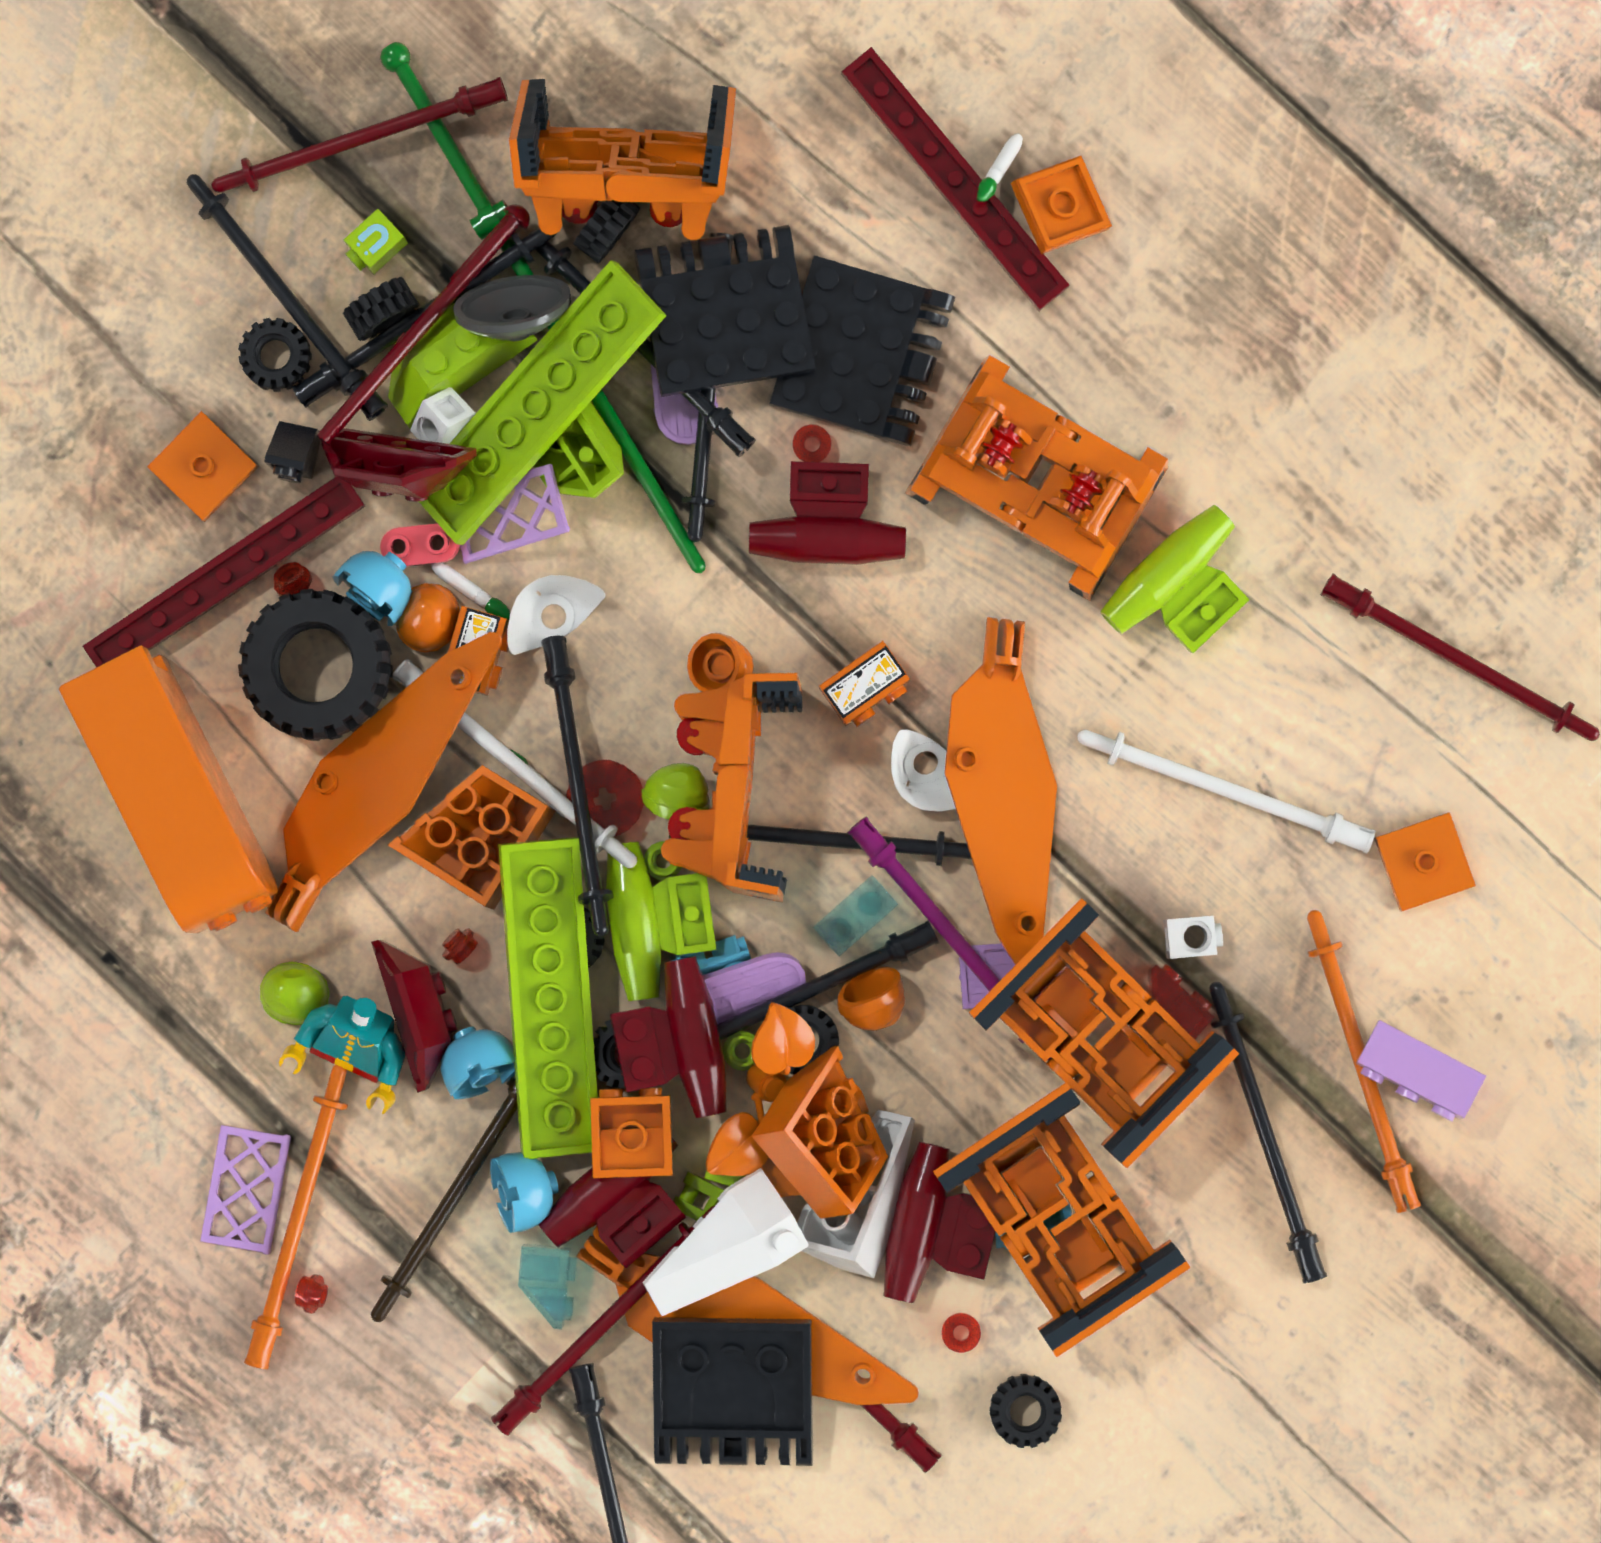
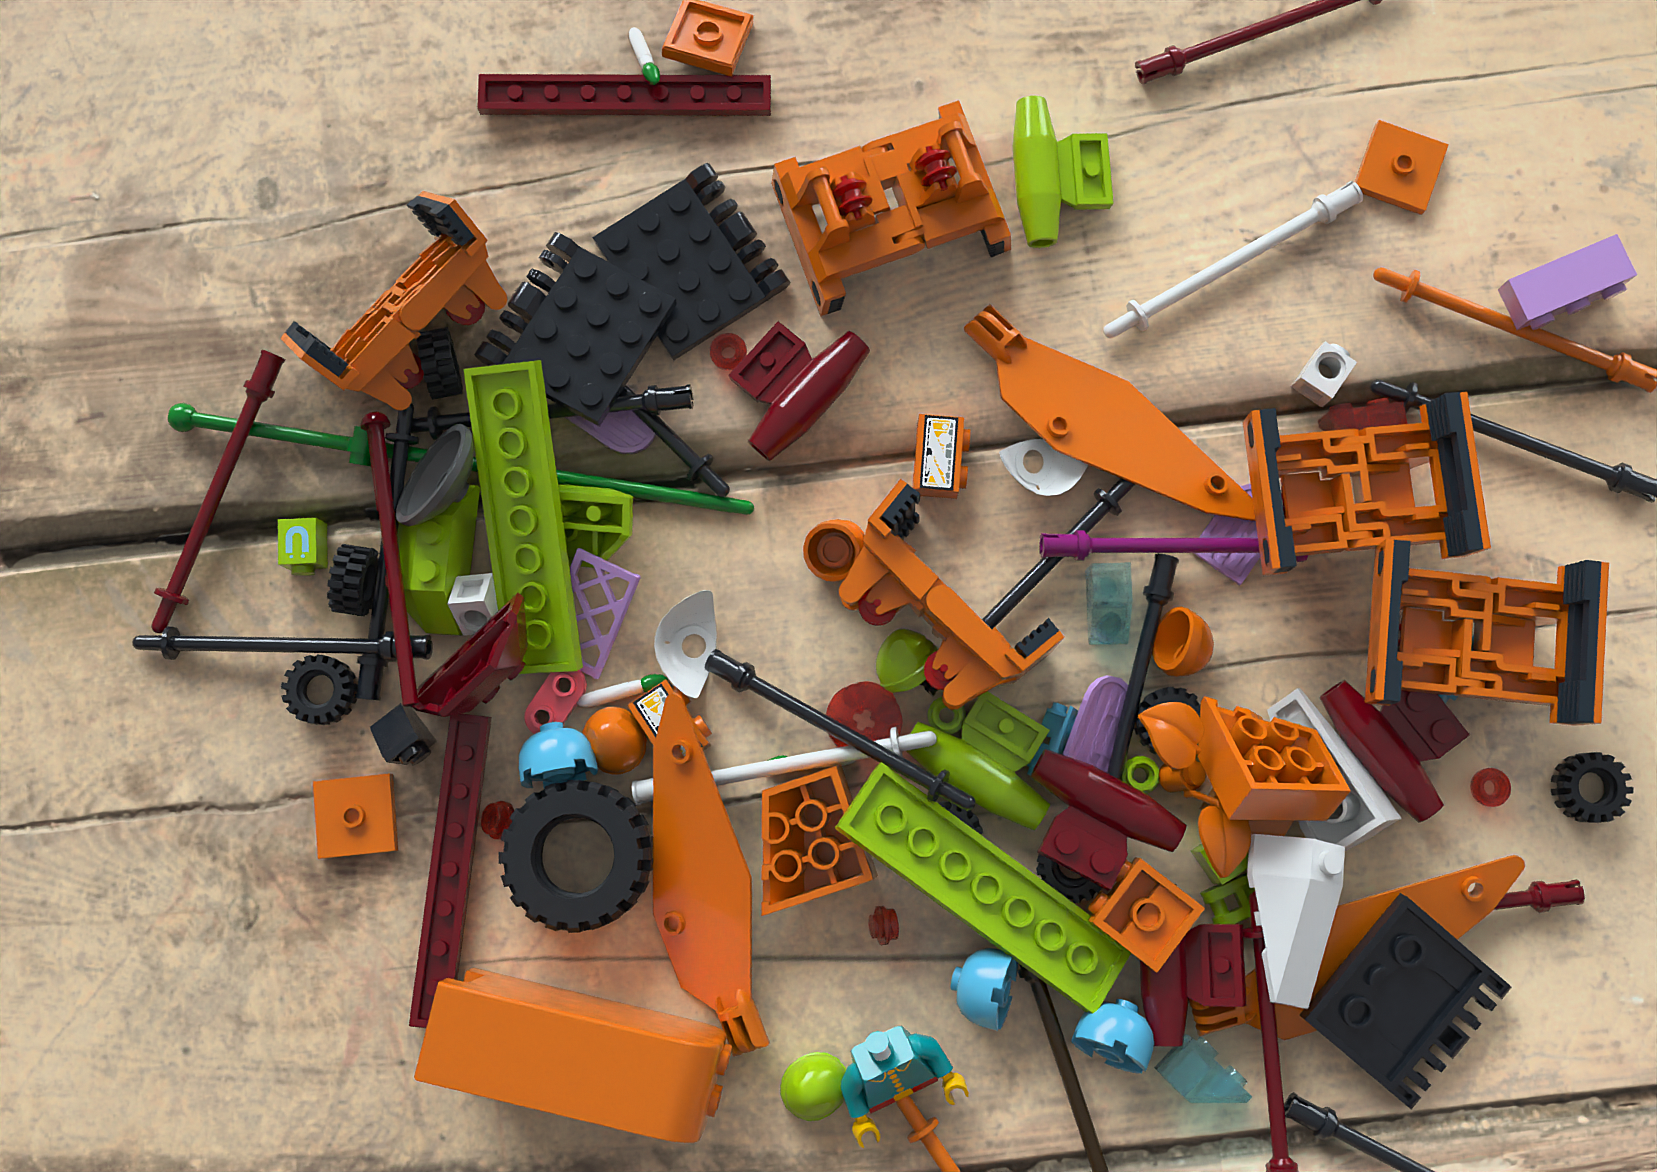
camera: 50 degrees left, 5 degrees down
(417, 1009) = (906, 999): dark red wedge -> none

